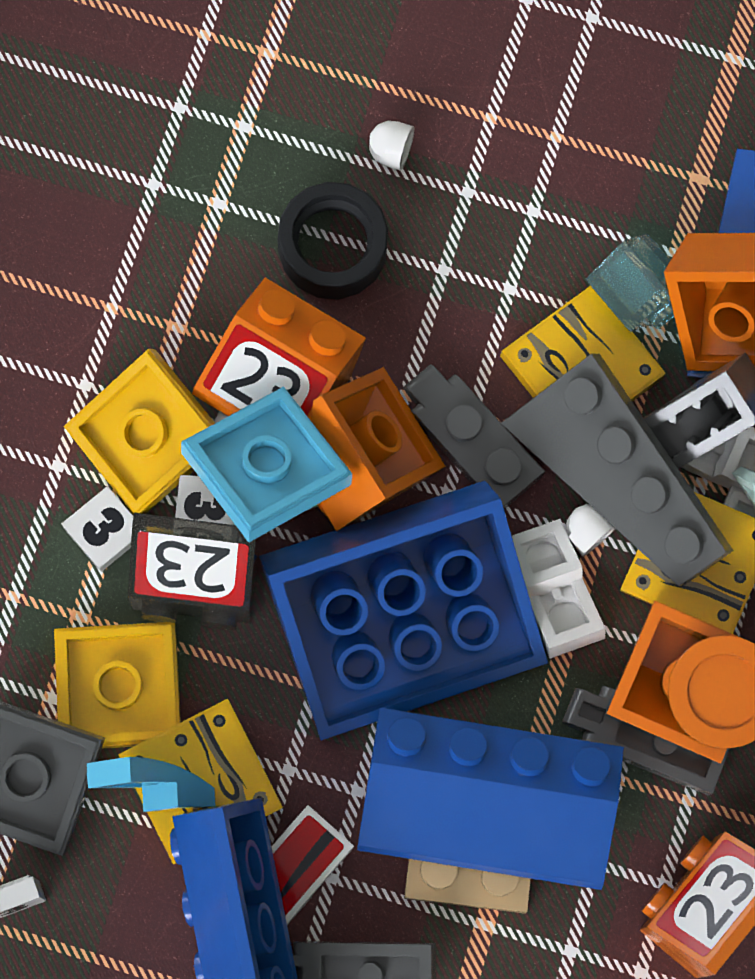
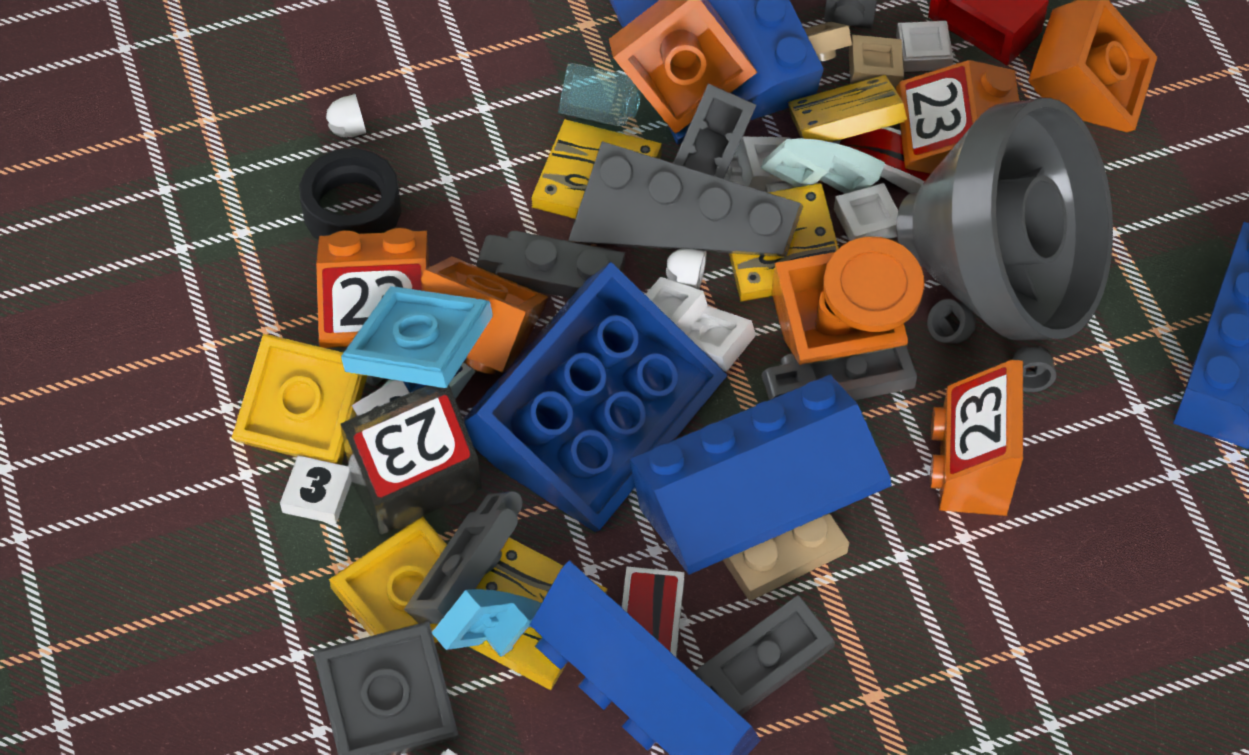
camera: 30 degrees left, 20 degrees down
(174, 702) = (467, 557): none -> dark grey hinge

